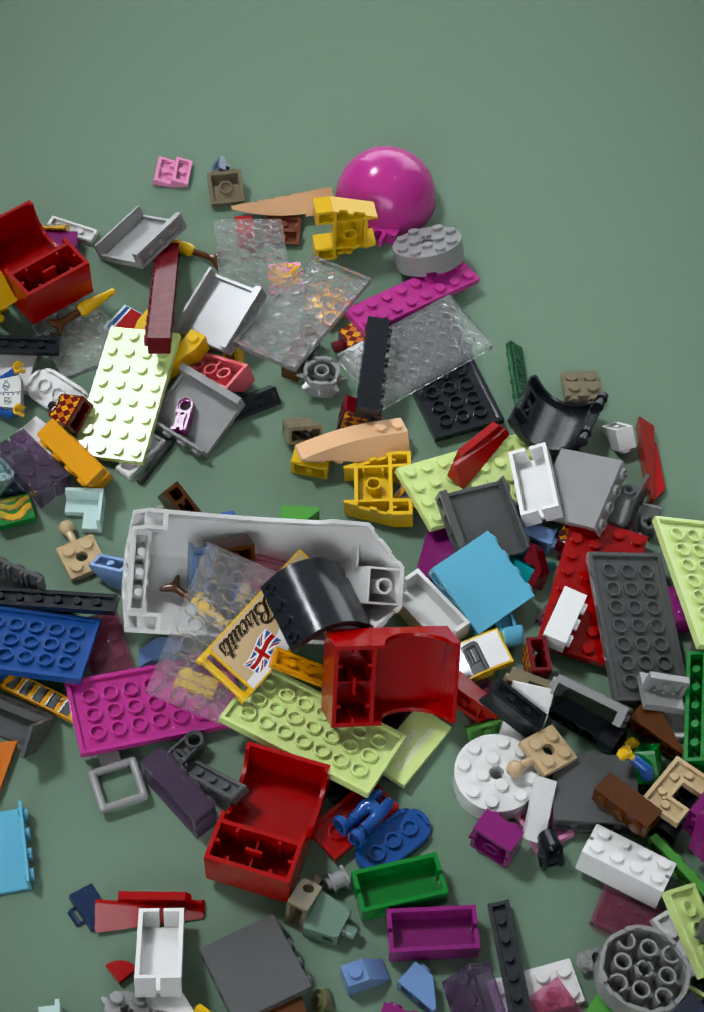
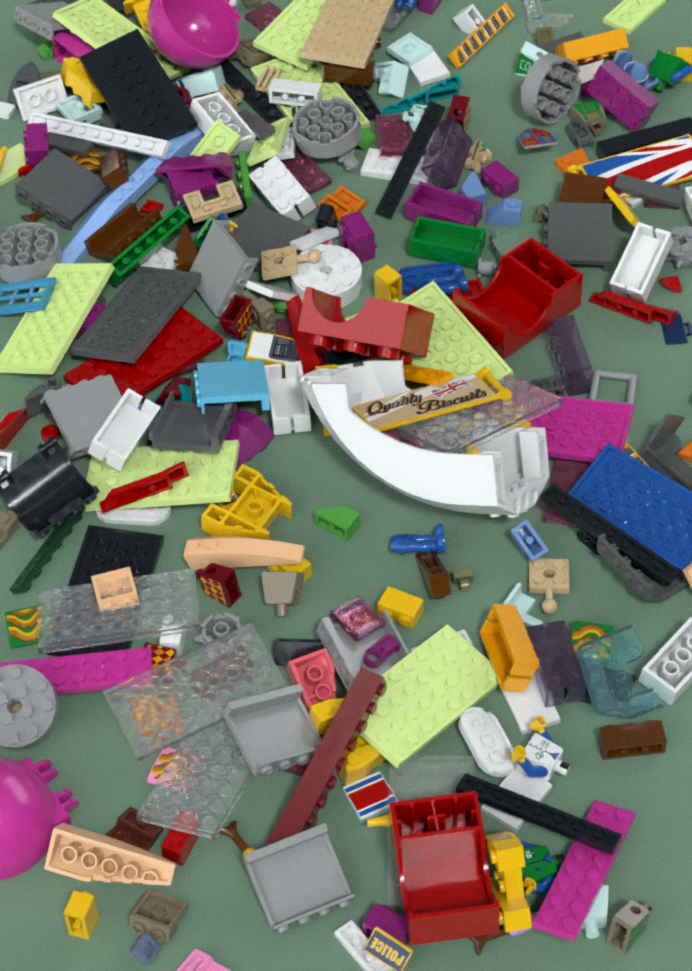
camera: 145 degrees left, 5 degrees down
(70, 411) = (490, 701): dark red torso -> none
(154, 463) = (417, 642): pearl dark grey bar -> none
(193, 468) = (401, 607): none -> yellow brick
(216, 782) = (538, 345): dark grey tile -> none
(219, 432) = (357, 618): none -> clear pink tile
(274, 160) = (81, 914): none -> yellow brick
(312, 599) = (392, 371): black hinge -> none
(348, 226) = (85, 763): yellow wedge -> none
(372, 368) = (179, 588): black brick -> none
(421, 787) = (387, 284): none -> yellow brick
(437, 373) = (114, 578): none -> light nougat plate
(488, 323) = (22, 627): none -> slope
(513, 708) = (284, 284): black panel -> none
(554, 897) = (344, 202): none -> orange slope
(565, 619) = (192, 332): white brick -> none
(626, 805) = (256, 207): reddish brown brick -> none
(662, 691) = (162, 262): light grey bracket -> none

